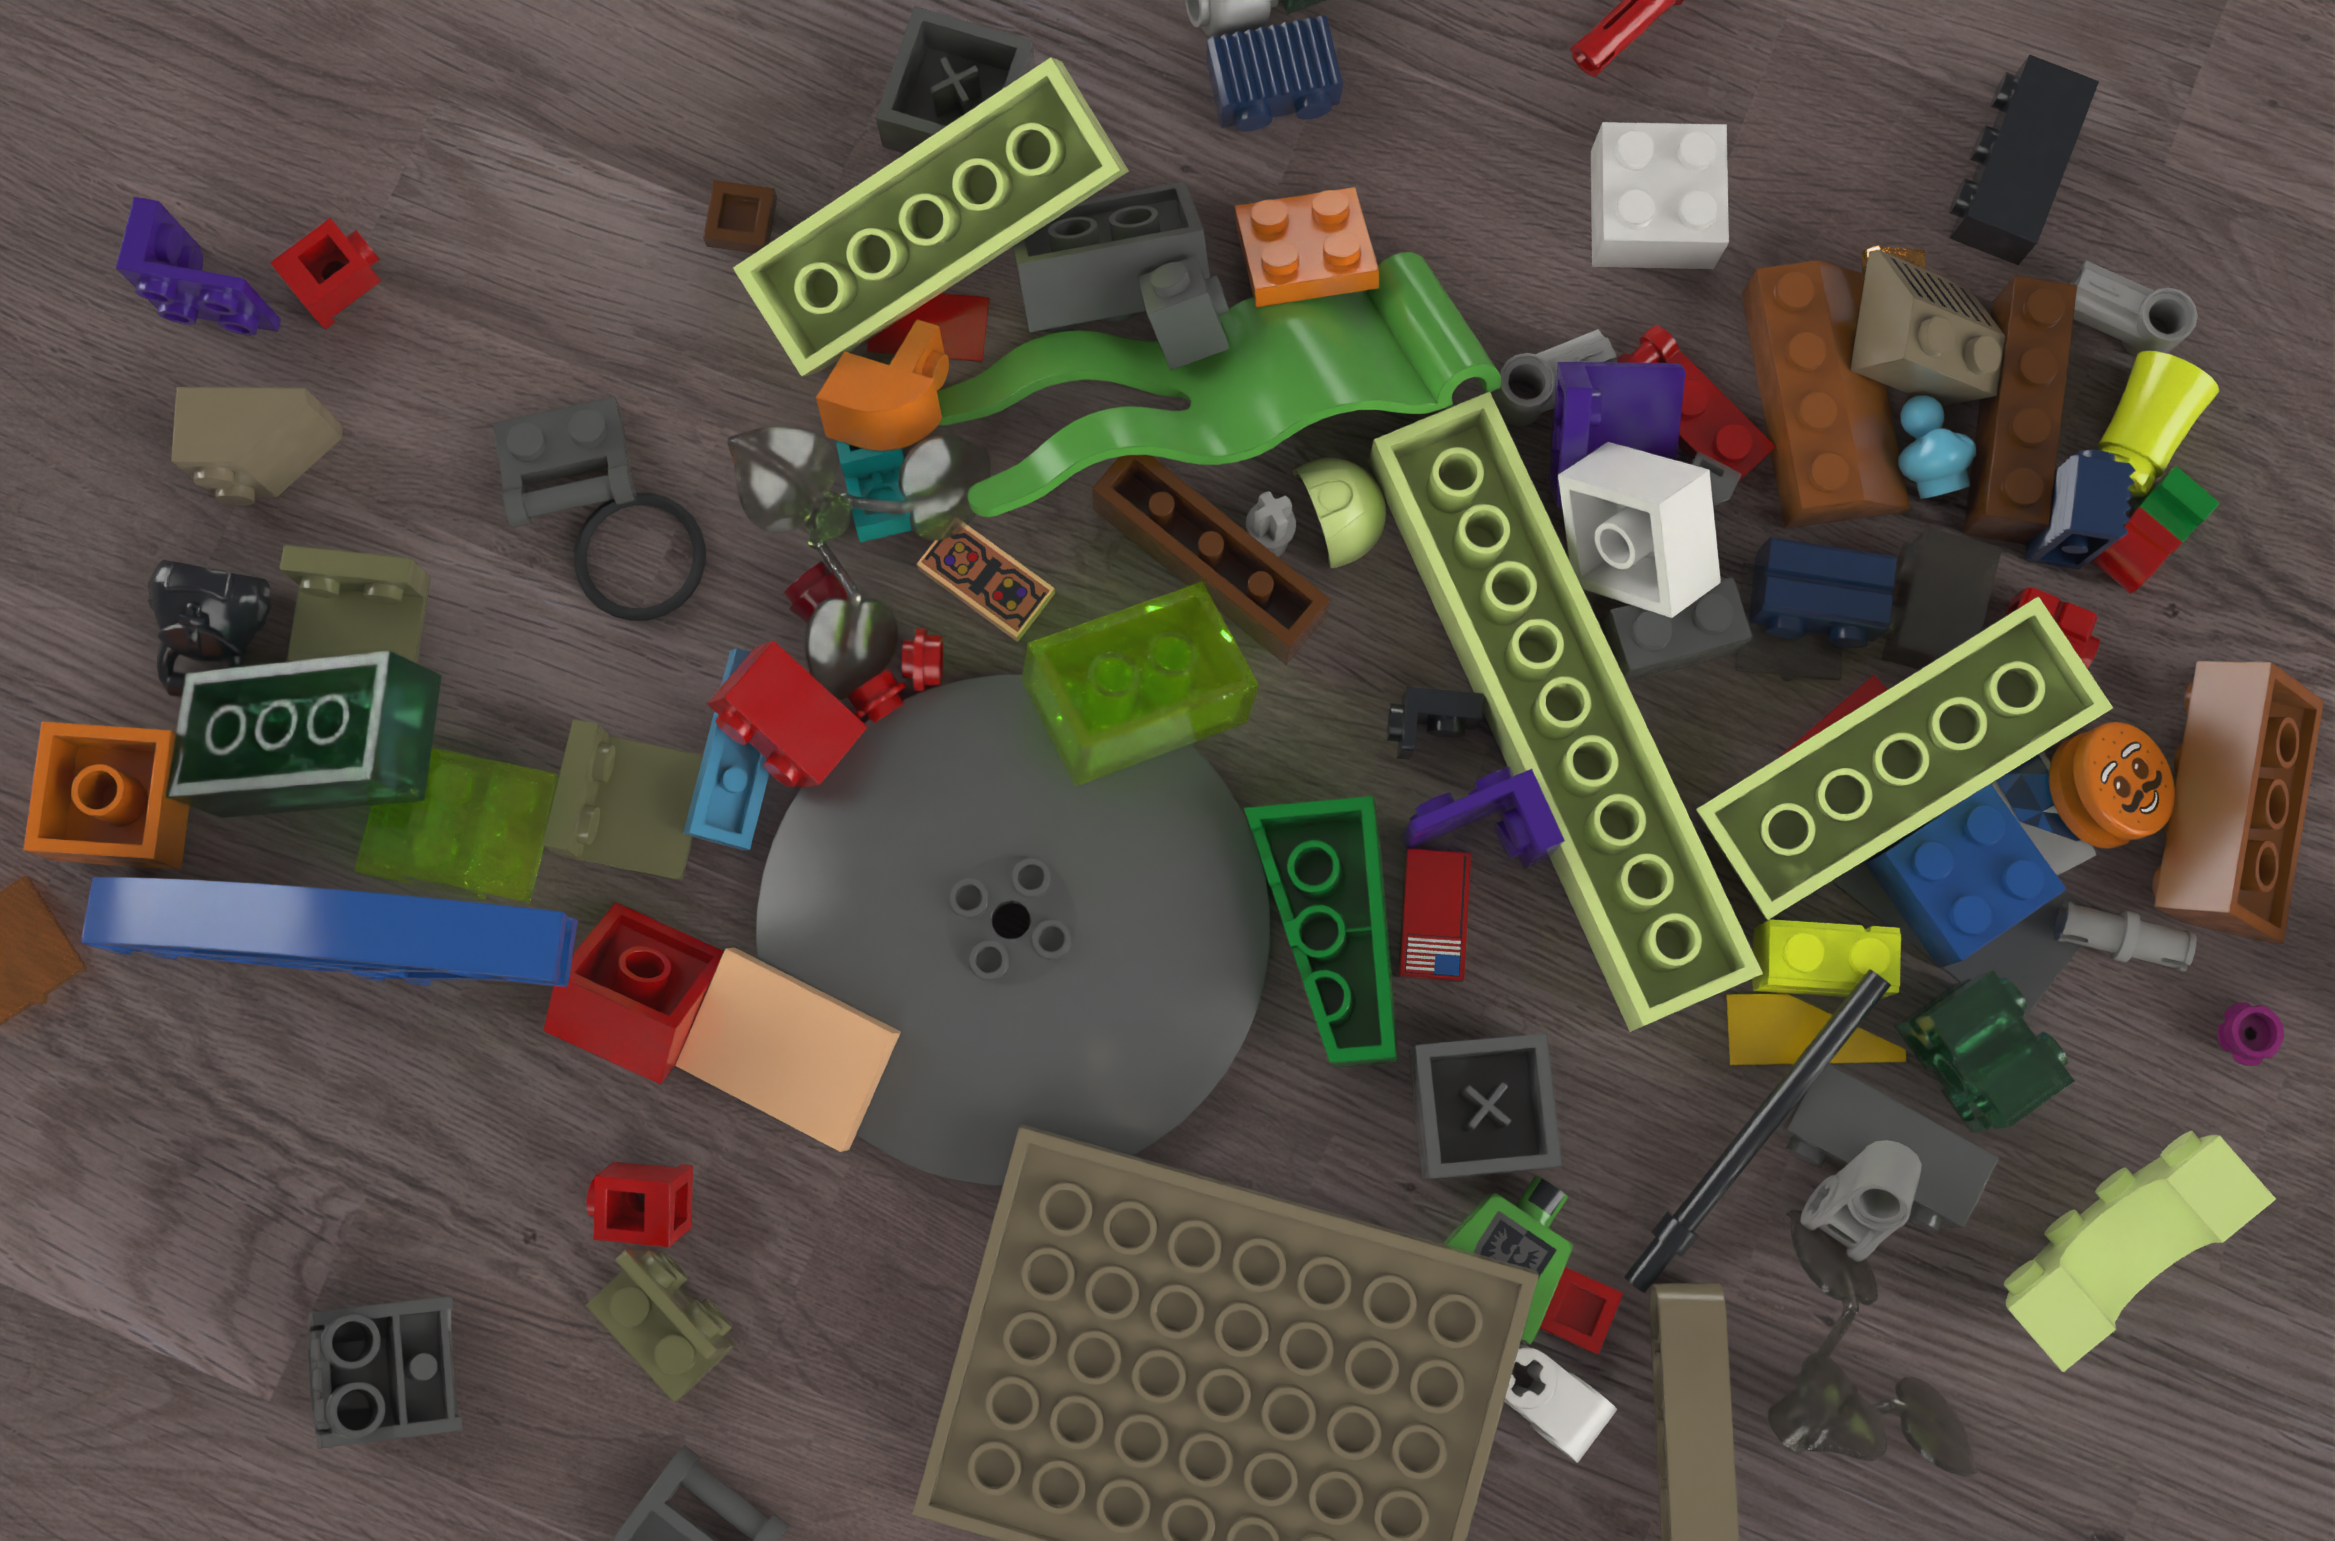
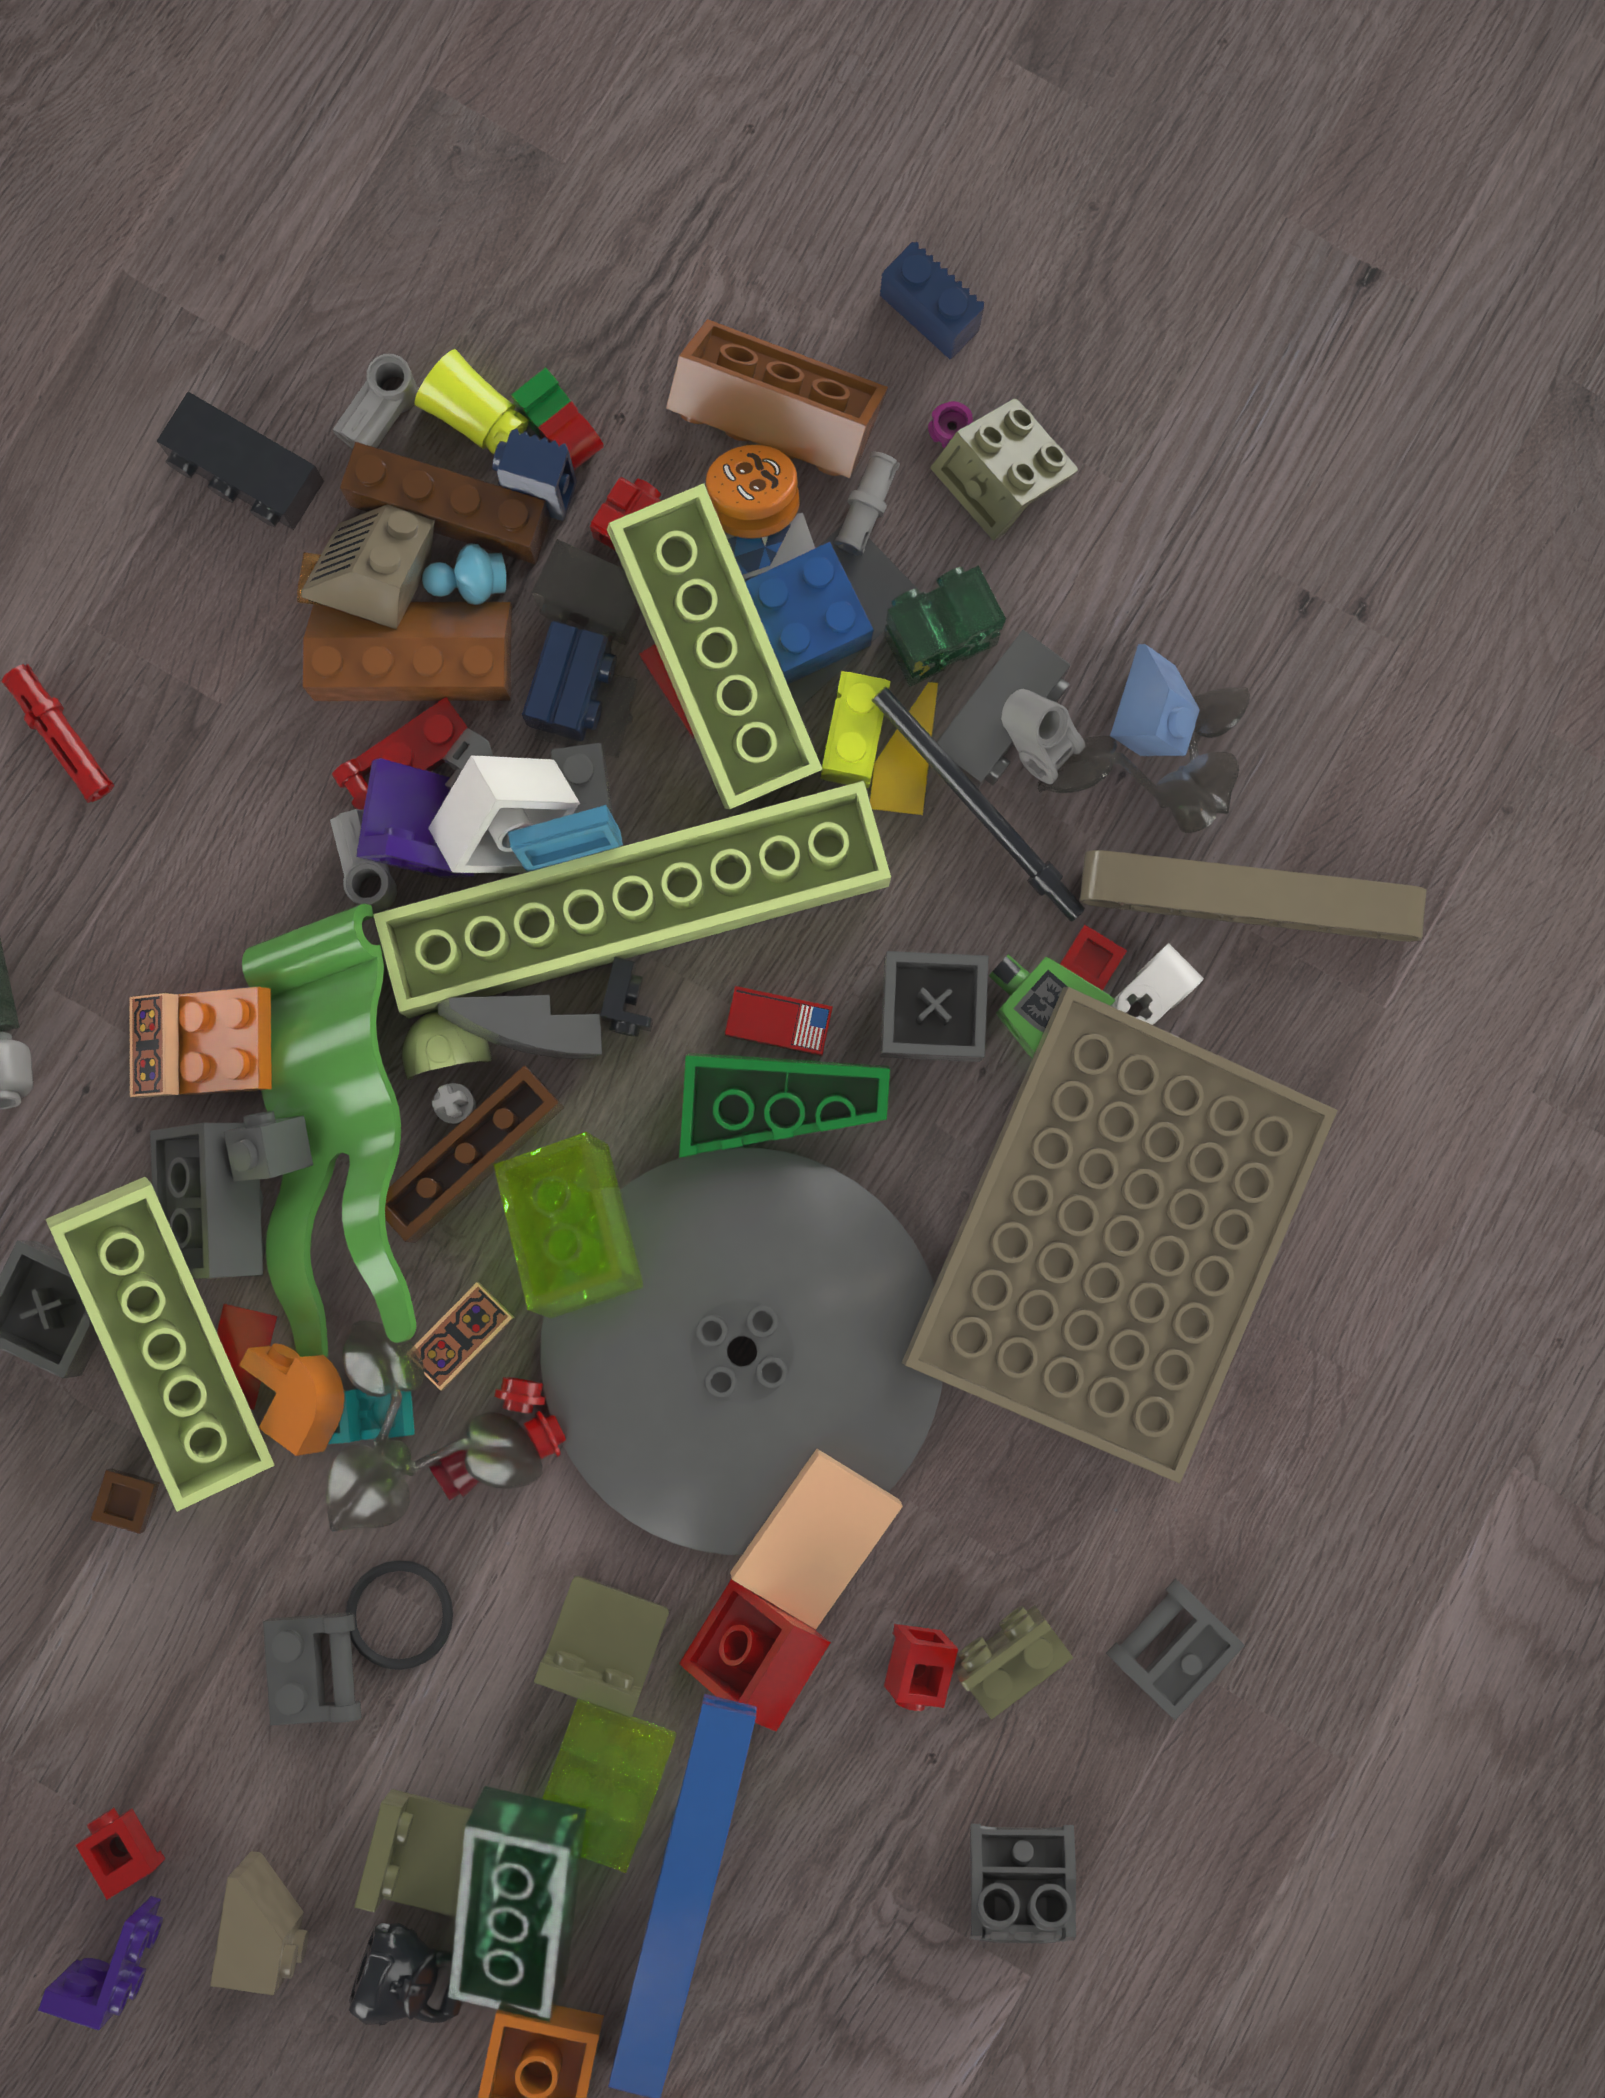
camera: 85 degrees left, 5 degrees up
(727, 785) = (571, 1550): dark azure plate -> none
(785, 717) = (553, 1510): red brick -> none
(1274, 73) = (71, 1045): dark blue brick -> none
(1288, 168) = (154, 1045): none -> tile
(1380, 597) = (526, 1025): none -> dark grey slope
(1526, 821) = (724, 943): dark purple bracket -> none
(1623, 606) = (565, 838): none -> dark azure tile
(1659, 195) = (225, 752): white brick -> none
(1927, 1350) = (1155, 708): none -> medium blue slope
(2128, 1237) = (1094, 550): yellowish green brick -> none
(2210, 1085) = (1002, 466): none -> olive bracket

